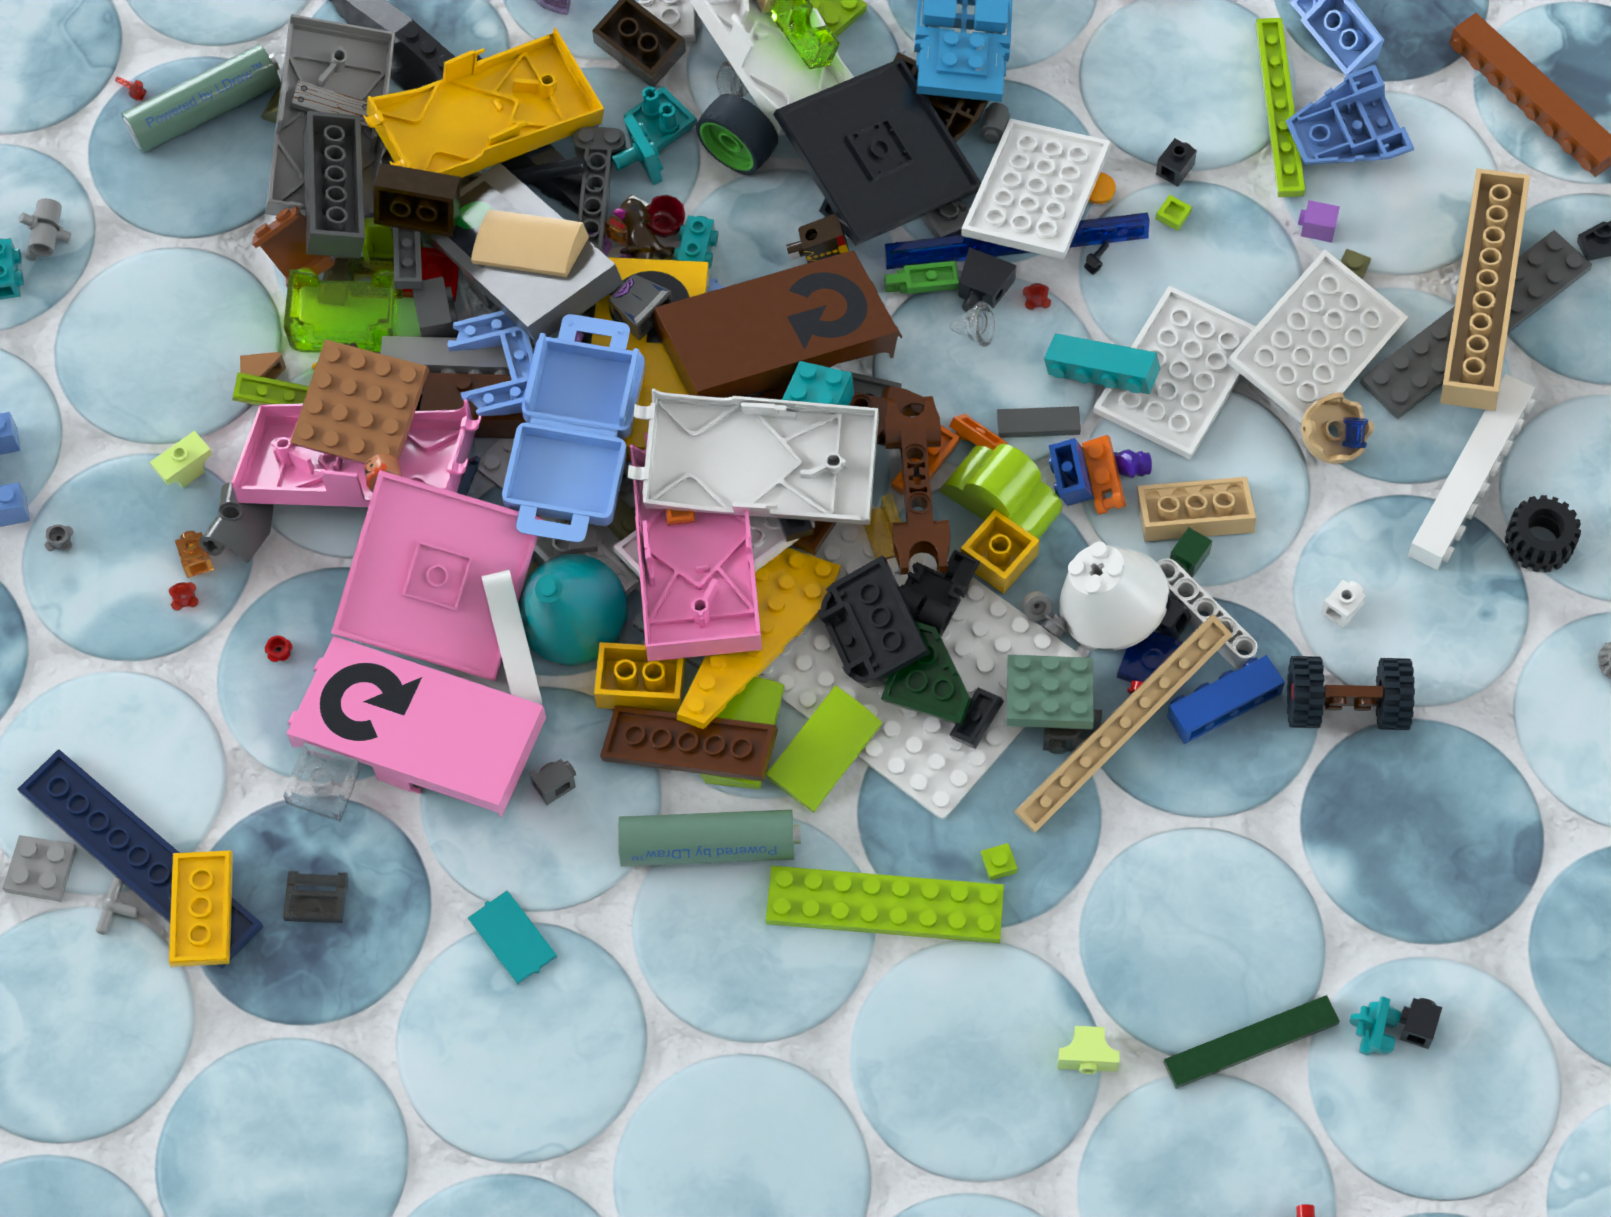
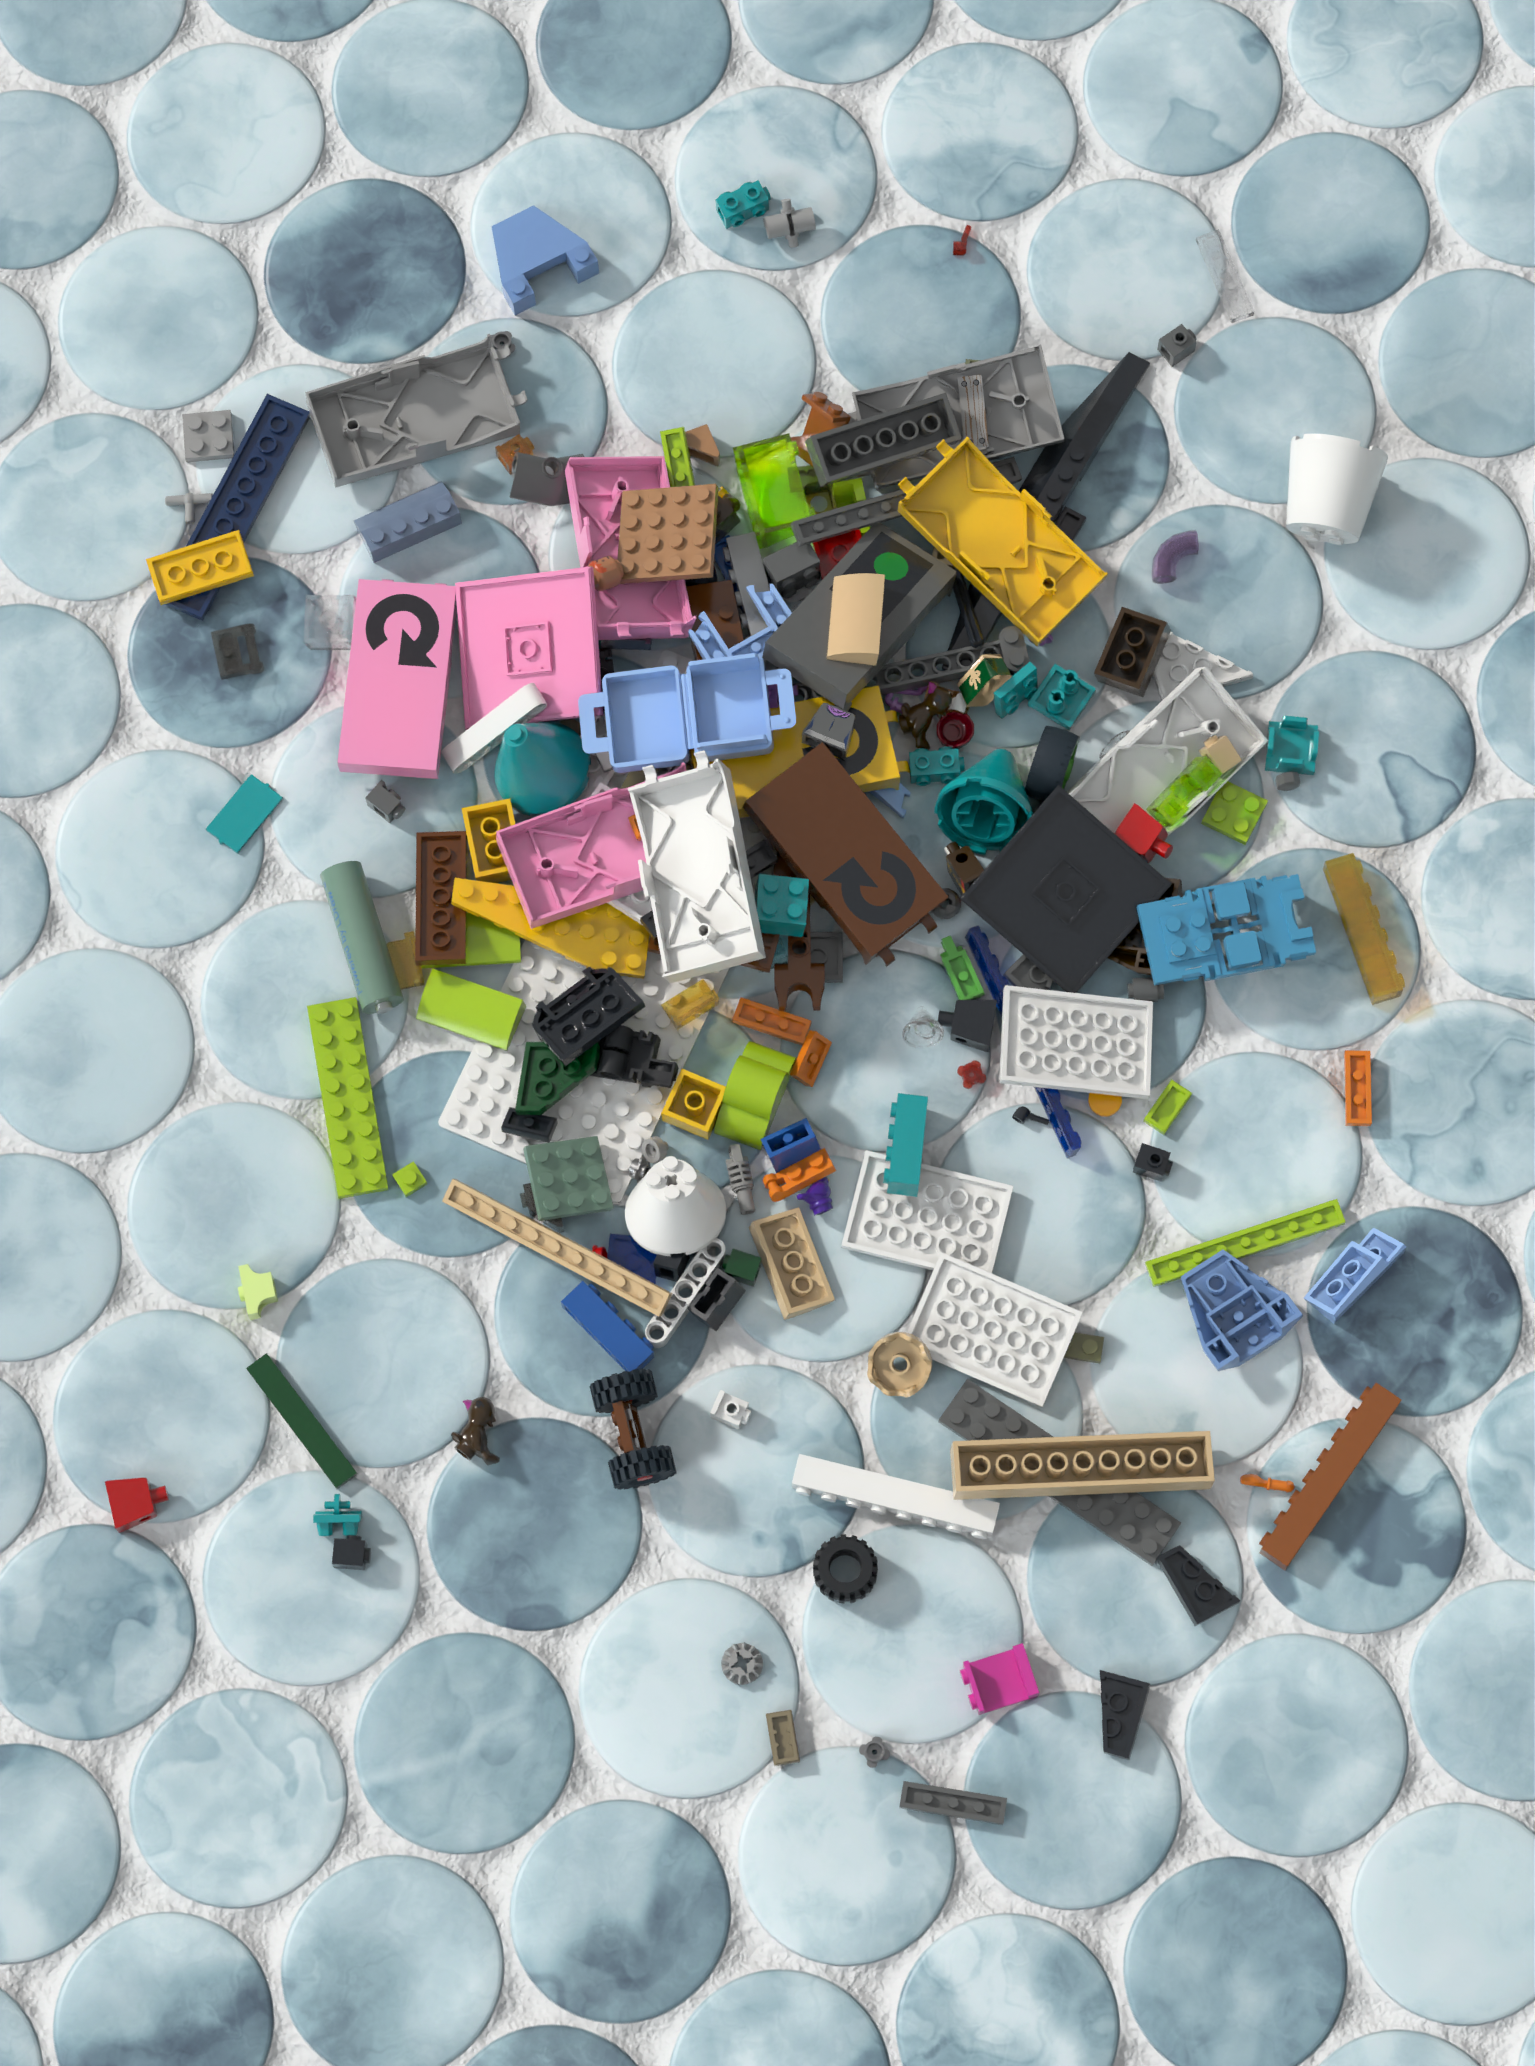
camera: 75 degrees right, 10 degrees up
(105, 639) = (414, 412): none -> light grey piece
(183, 460) = (594, 413): yellowish green brick -> none
(183, 589) = (475, 452): clear red plate -> none
(201, 98) = (958, 302): sand green piece -> none
(228, 679) = (408, 521): none -> sand blue slope
(278, 642) = (444, 544): red plate -> none
(416, 200) = (877, 512): dark brown brick -> none
(625, 169) = (983, 680): none -> piece
(745, 796) = (403, 959): none -> clear yellow panel
(762, 197) = (984, 804): none -> teal cone
(838, 67) = (1144, 834): none -> red torso
(919, 531) = (680, 1027): reddish brown piece -> none
(1038, 421) = (842, 1108): dark grey tile -> none
(1089, 532) = (740, 1179): none -> light grey hinge
(1123, 140) = (1167, 1107): none -> lime tile
(1173, 212) = (1096, 1173): lime plate -> none
(1222, 582) = (717, 1299): none -> black brick
(1315, 861) = (473, 1436): none -> dark brown animal
(1319, 221) = (1125, 1305): medium lavender brick -> none
(1355, 432) = (899, 1380): clear blue bush -> none
(1523, 160) = (1255, 1480): none -> orange piece

